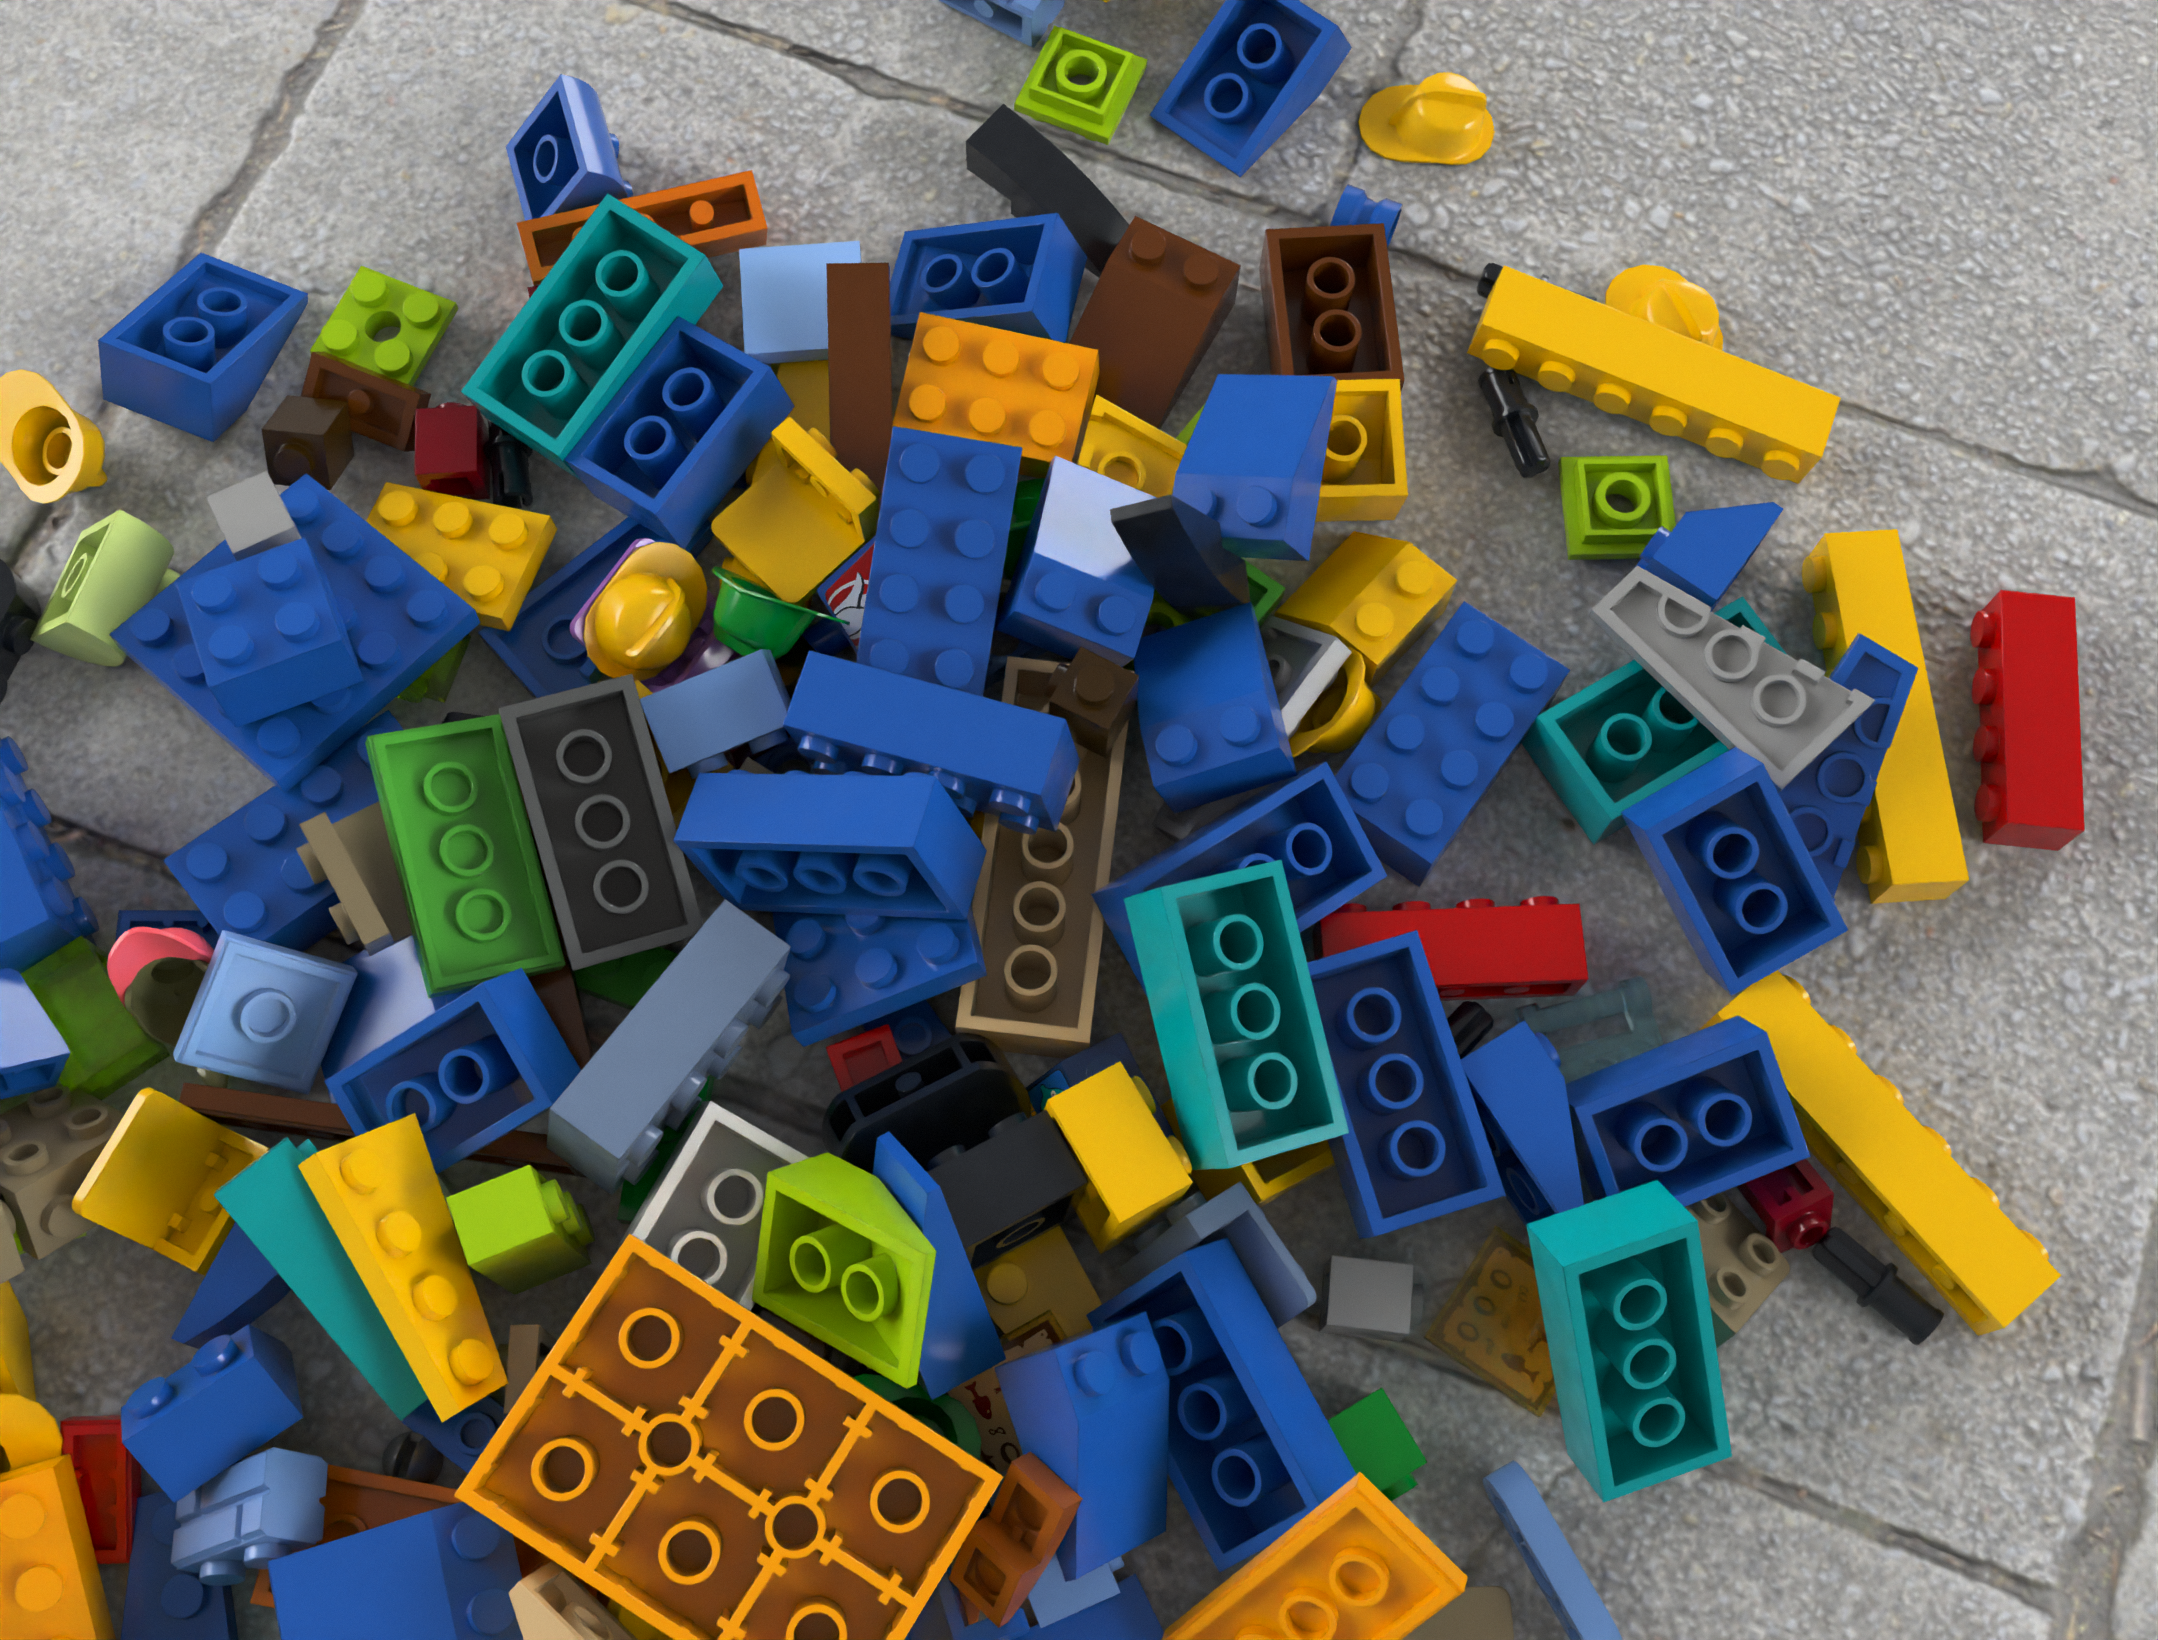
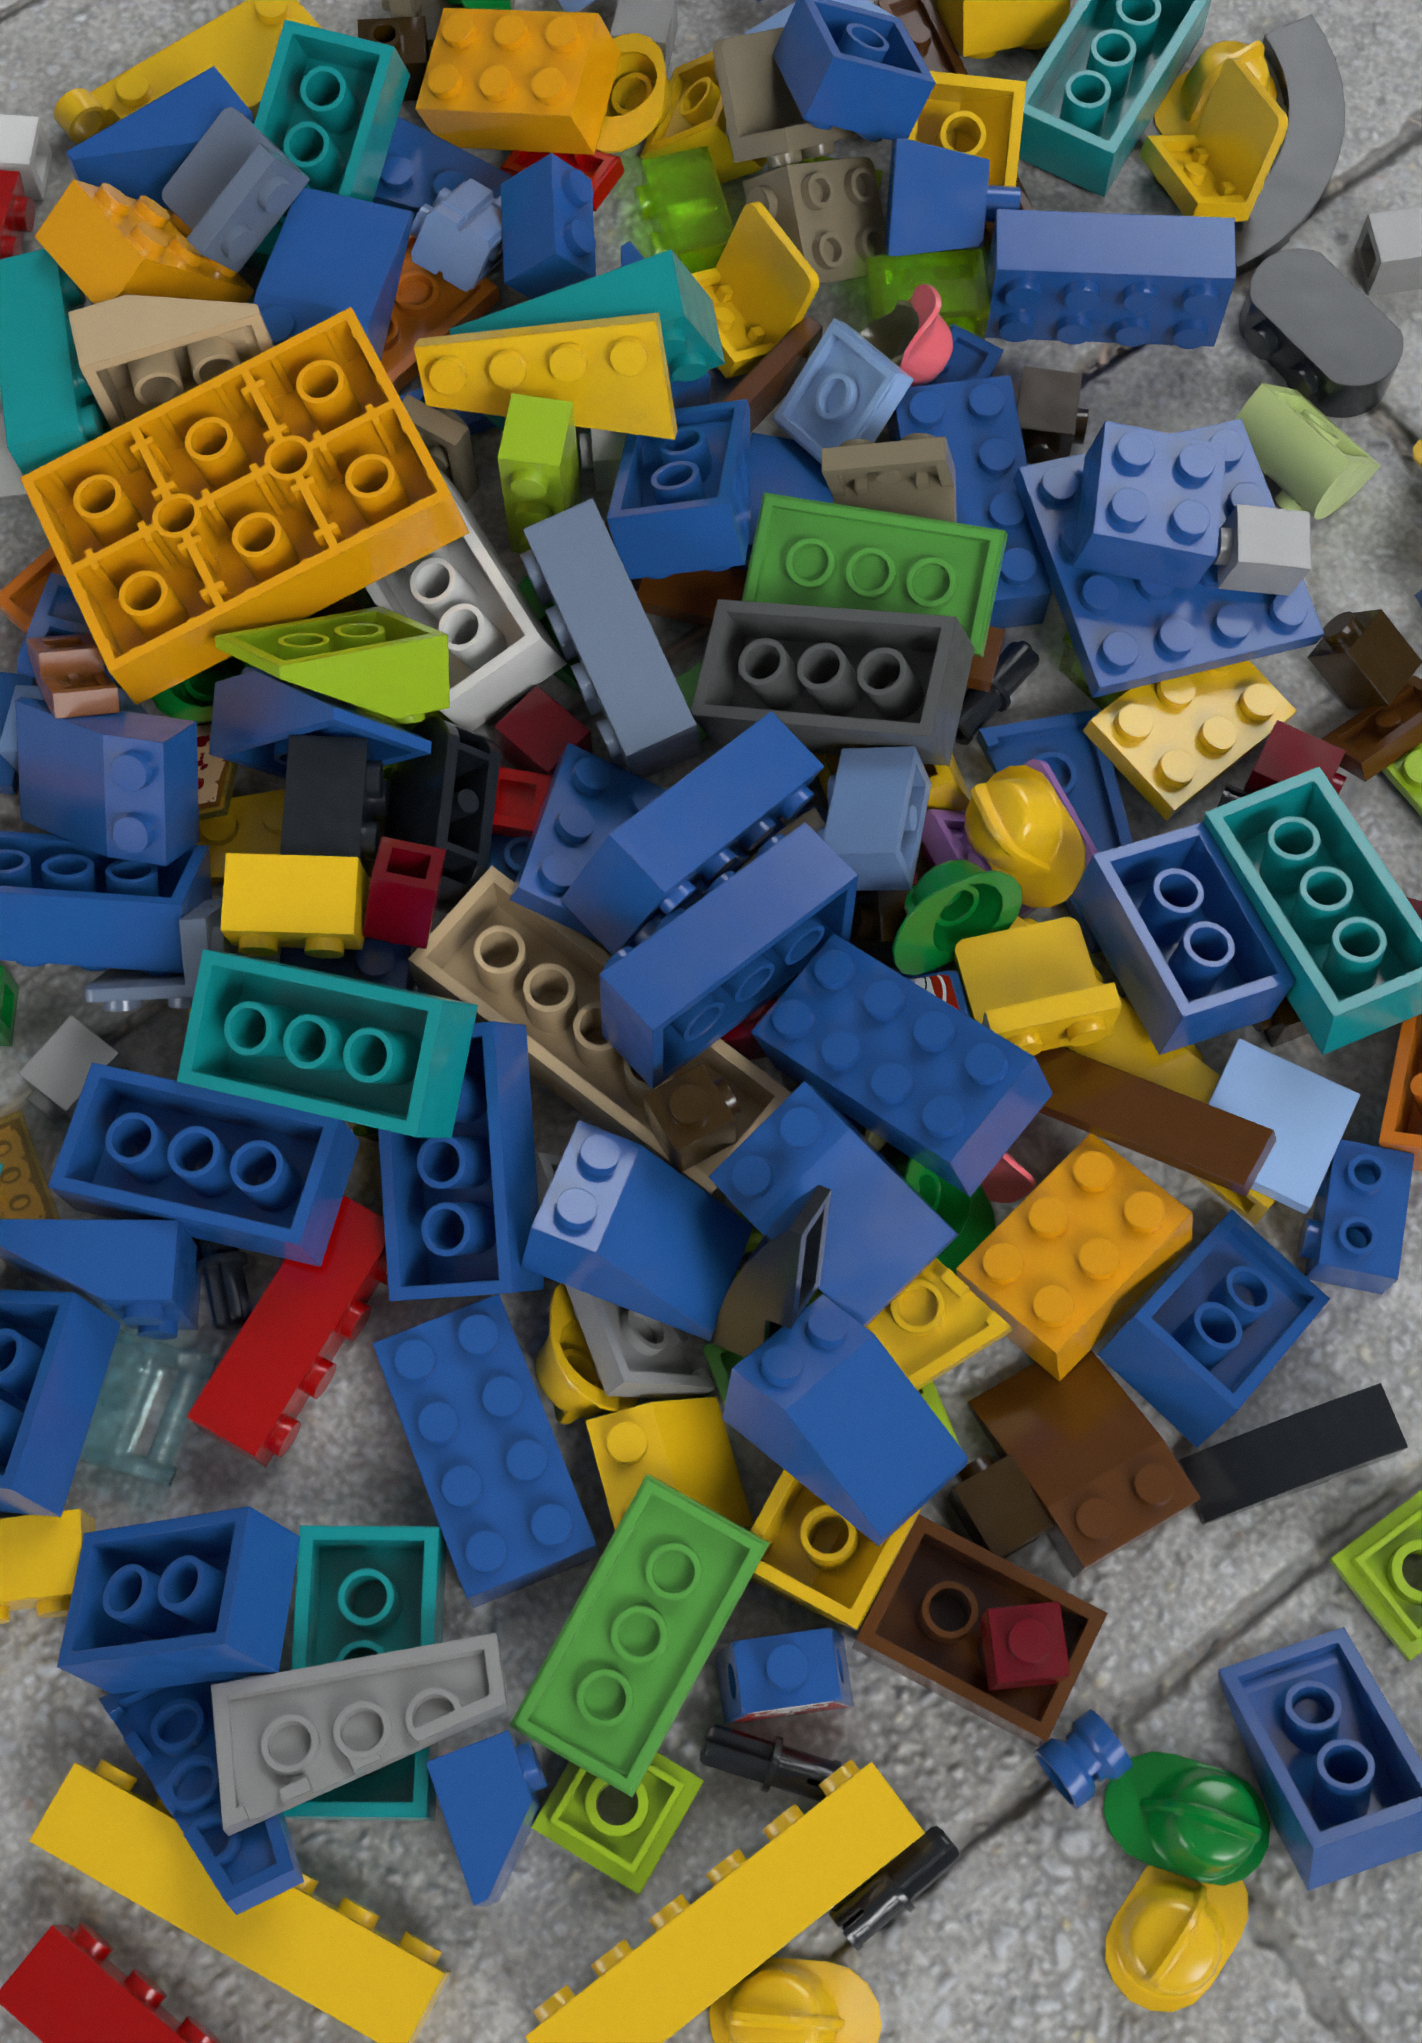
camera: 125 degrees right, 0 degrees up
(99, 1315) = (684, 207): none -> clear neon green brick
(165, 826) = (1050, 413): none -> dark brown brick
(787, 1086) = (538, 732): none -> dark red brick
(835, 213) = (1359, 1218): none -> blue brick
(1035, 1063) = (403, 892): none -> dark red brick
(1226, 347) = (998, 1506): none -> dark brown brick
(1338, 250) = (1024, 1646): none -> dark red brick
(1350, 144) = (1188, 1818): none -> green piece
(1458, 434) = (783, 1676): none -> blue torso
(1503, 529) = (639, 1634): none -> bright green tile

